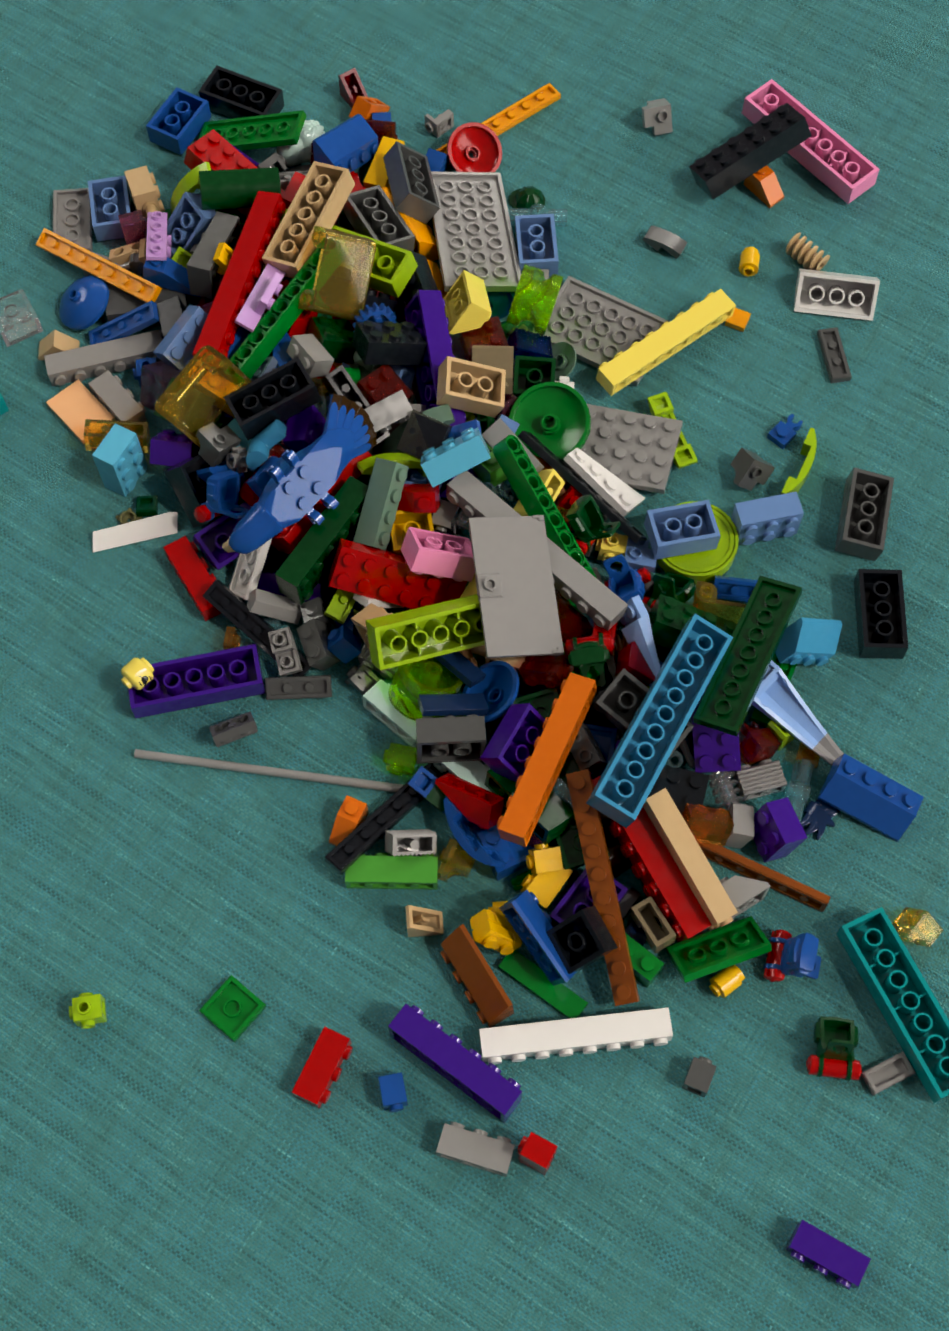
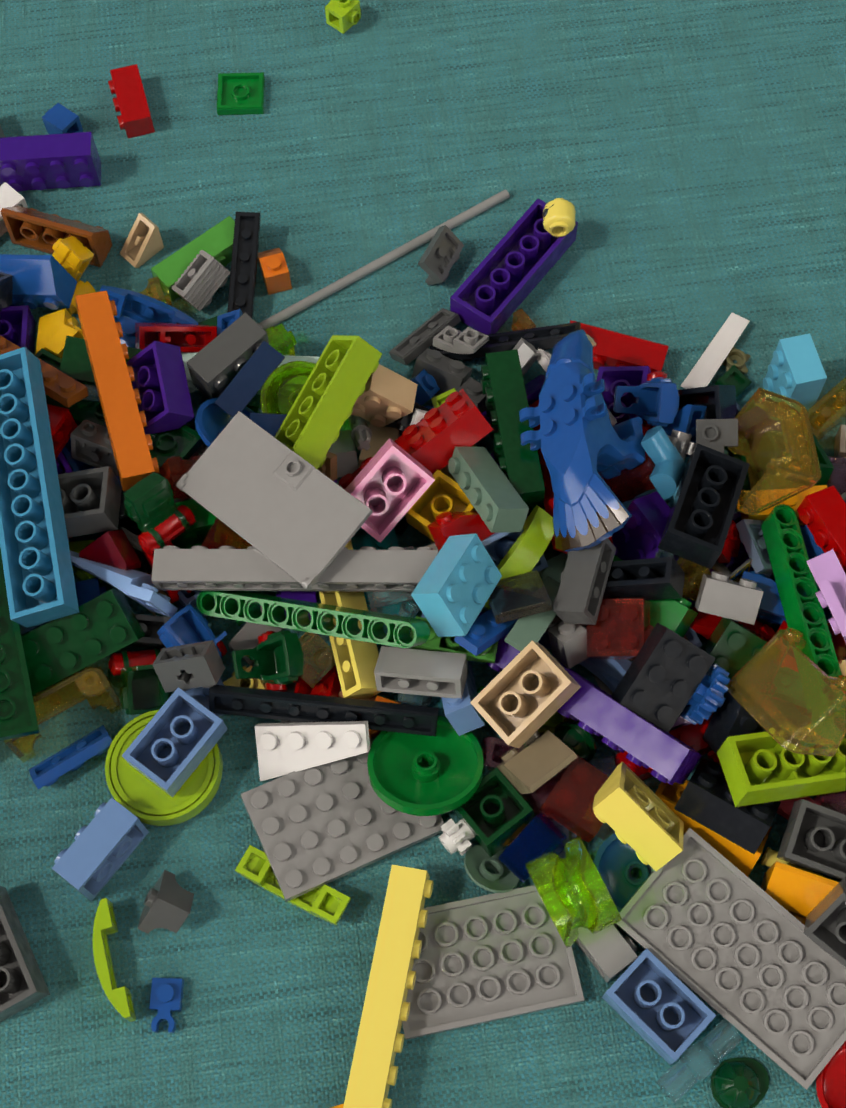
camera: 140 degrees right, 0 degrees up
(641, 556) = (189, 666): none -> dark grey brick

